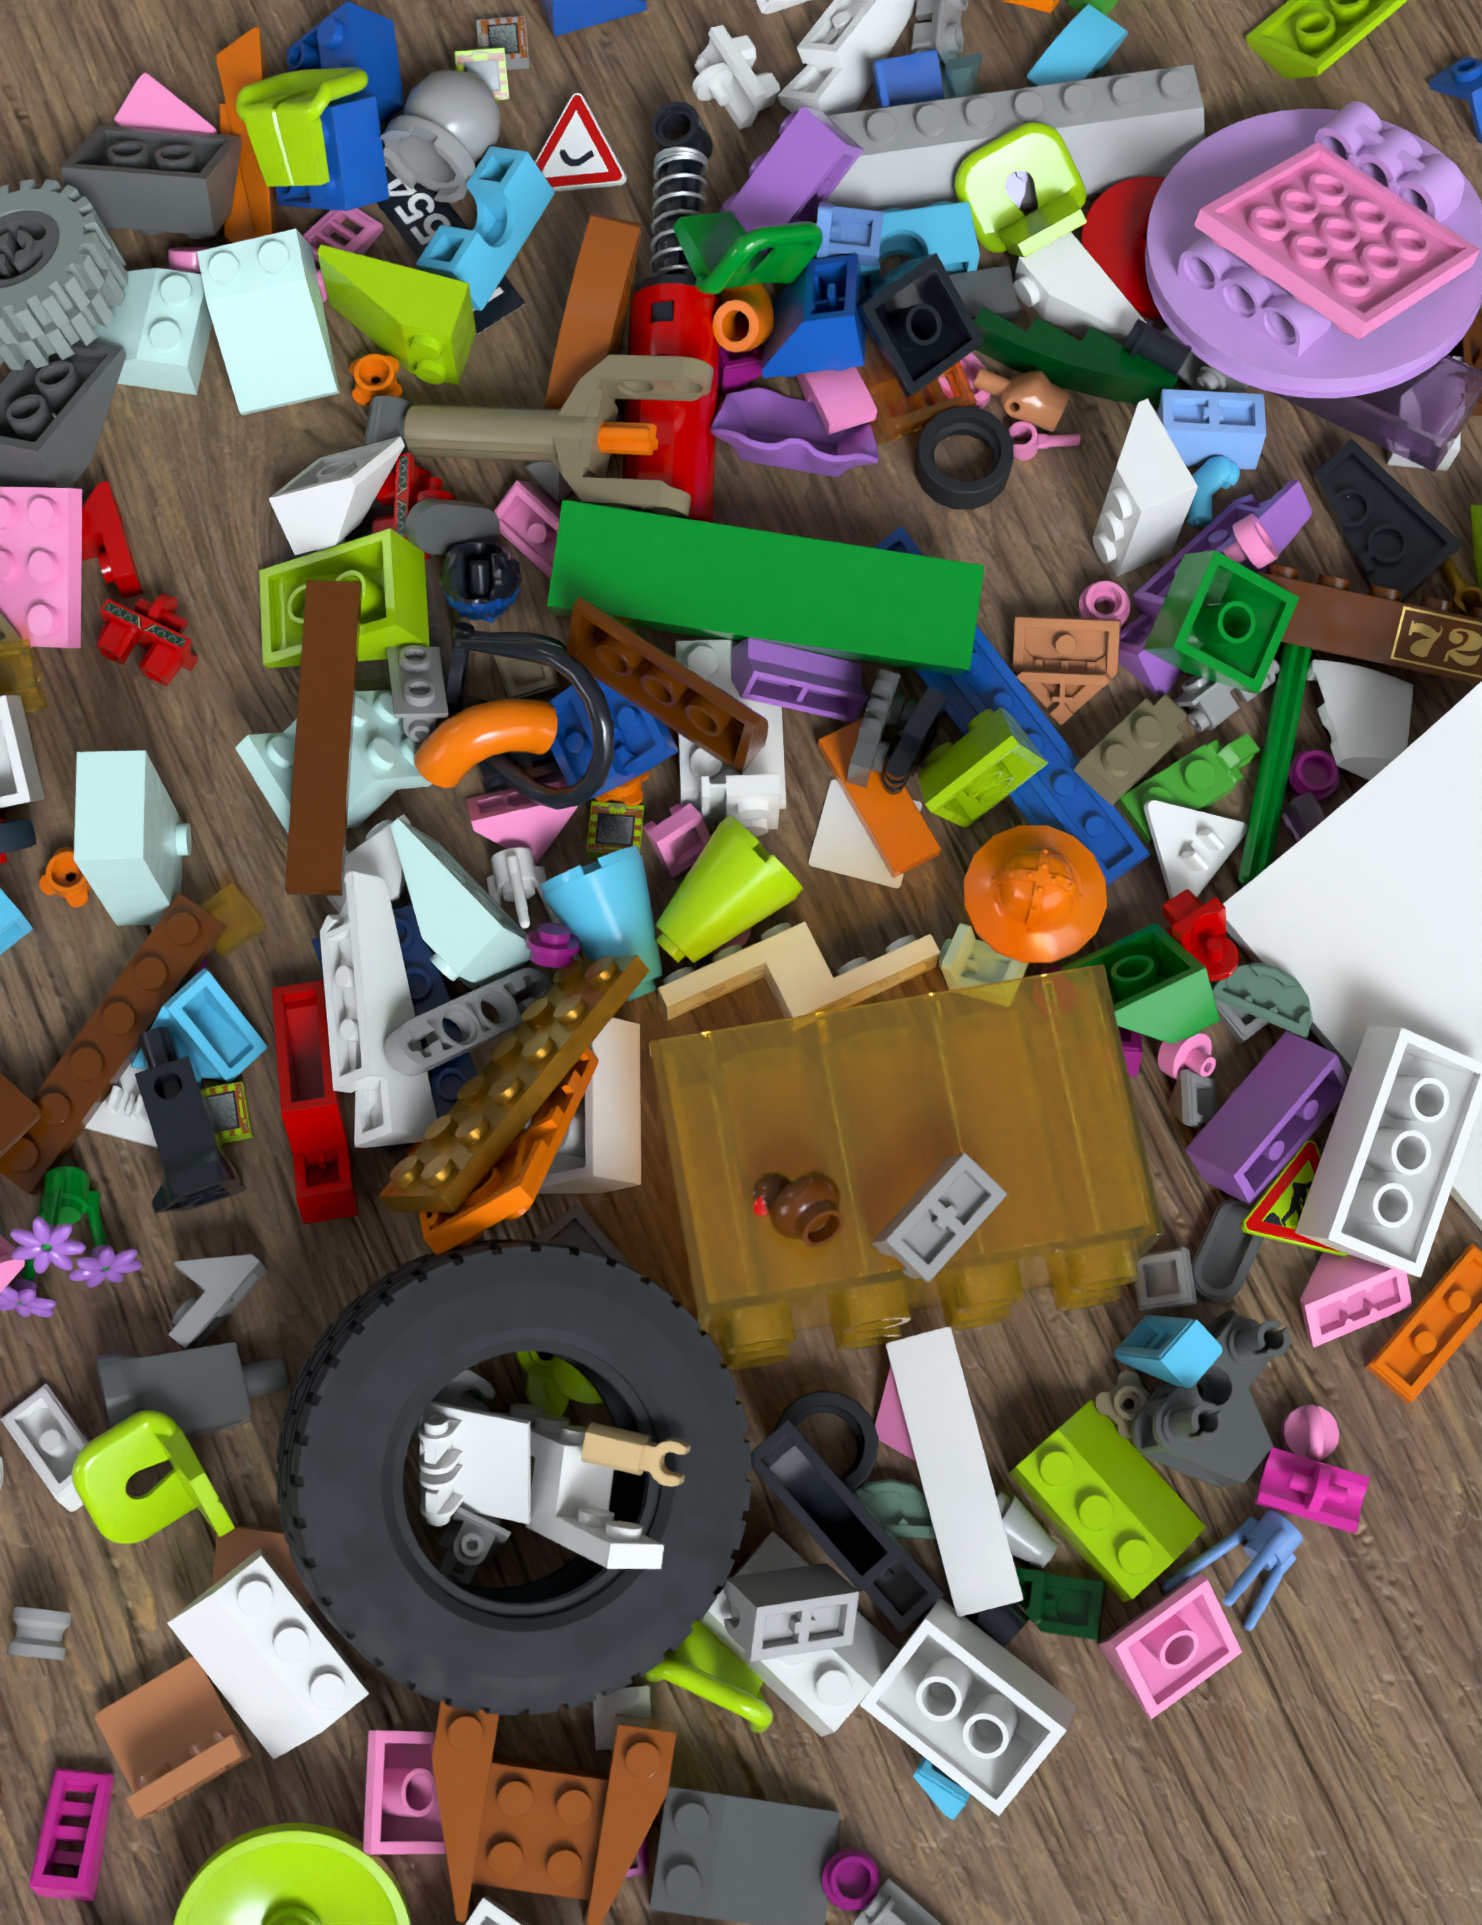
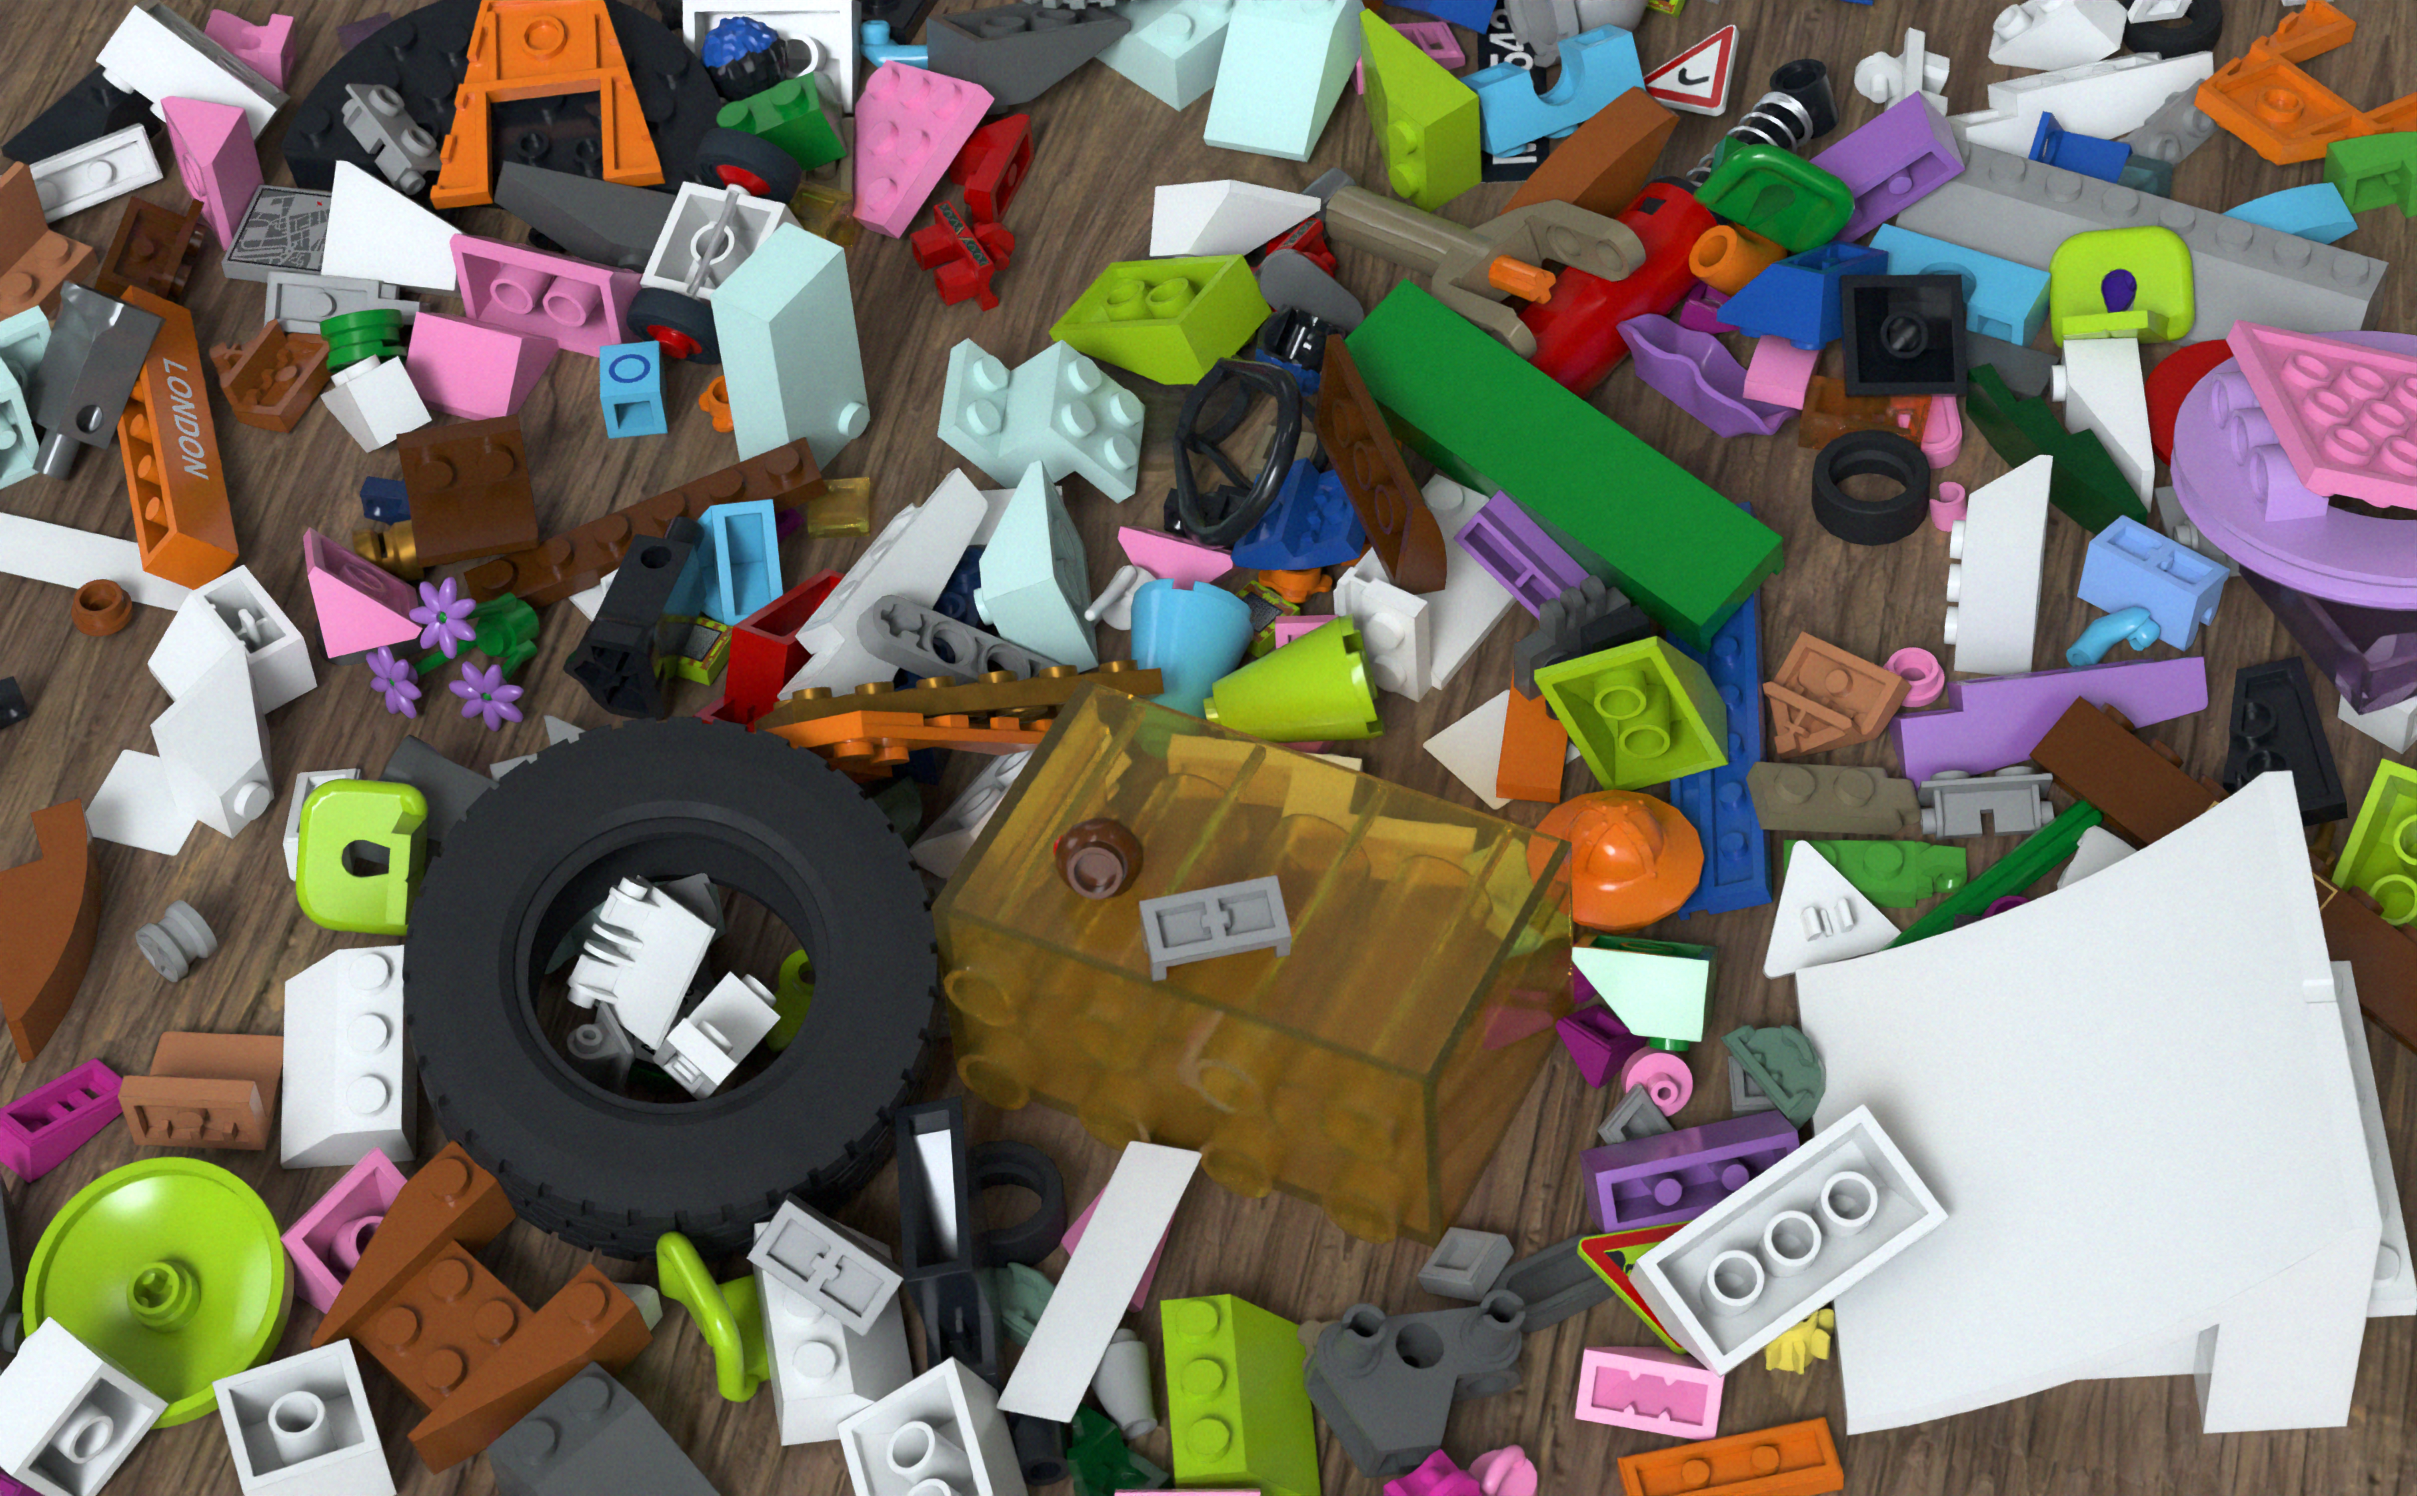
camera: 45 degrees right, 25 degrees down
(324, 738) = (1030, 366): reddish brown tile -> none
(373, 366) = (1353, 158): orange plate -> none
(417, 688) = (1155, 400): light grey hinge -> none
(482, 733) = (1184, 449): orange cylinder -> none
(552, 945) = (1100, 644): magenta plate -> none
(632, 1452) = (781, 1002): tan bar -> none
(850, 232) = (1888, 227): medium blue tile -> none
(1026, 396) = (1971, 462): nougat piece -> none
(1156, 347) = (2130, 456): black pin -> none
(1170, 1349) = (1407, 1285): medium azure slope -> none
(1202, 933) = (1749, 975): red hips -> none
(1221, 621) = (1999, 711): green slope -> none
(1251, 543) = (2095, 671): bright pink tile -> none

